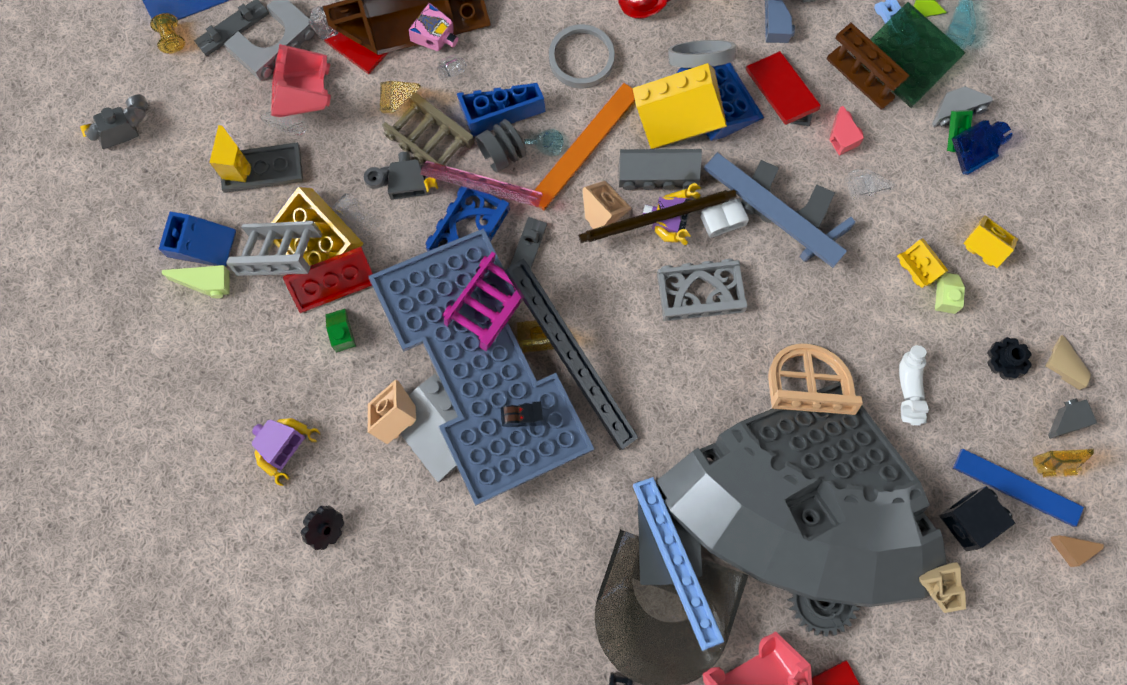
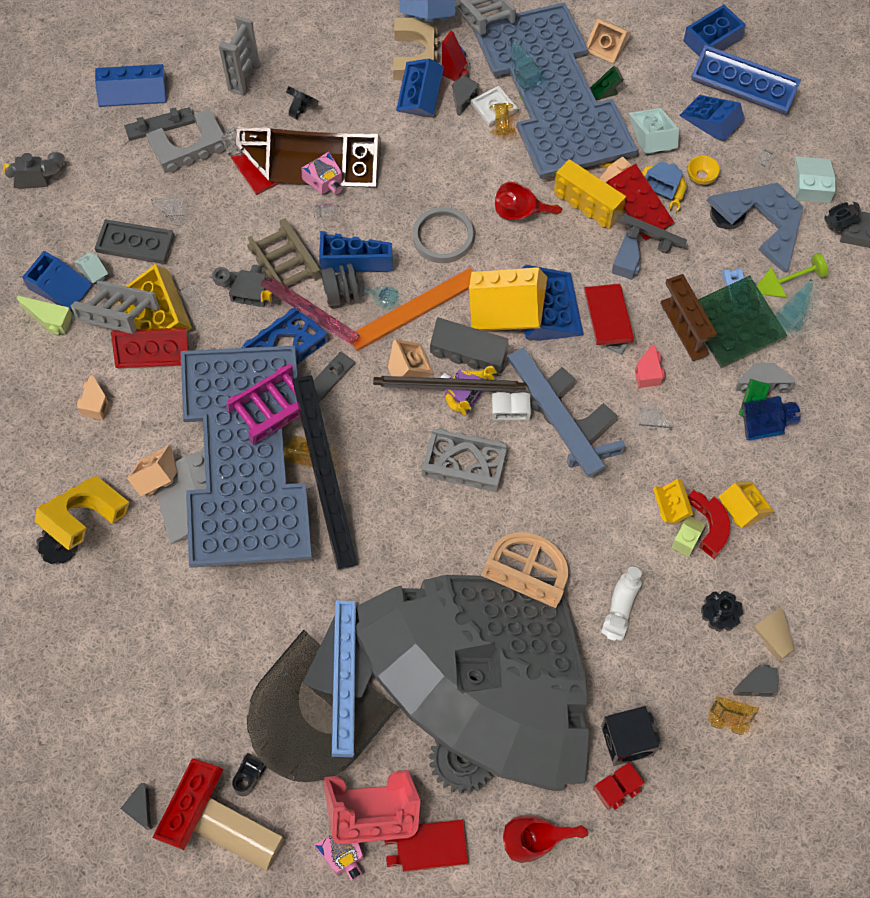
camera: 20 degrees right, 10 degrees down
(165, 25) = (104, 118): clear yellow hose -> none
(227, 211) = (91, 267): none -> light aqua slope
(228, 158) = (108, 223): yellow slope -> none
(277, 443) = (50, 464): torso -> none
(293, 358) = (93, 401): none -> light nougat slope
(299, 82) = (193, 181): coral windscreen -> none
(335, 460) = (91, 493): none -> yellow arch
(339, 330) = (141, 392): green slope -> none
(395, 93) = (269, 215): clear yellow slope -> none
(522, 415) = (259, 505): black leg -> none
(701, 52) = (547, 262): light grey piece -> none
(923, 651) = (532, 837): none -> red hat
(945, 587) = (576, 785): tan slope -> none
(973, 270) = (718, 523): none -> red arch
(984, 569) = (627, 780): none -> red piece
(1018, 488) = (685, 727): blue tile -> none
(1075, 550) = (714, 798): medium nougat slope -> none

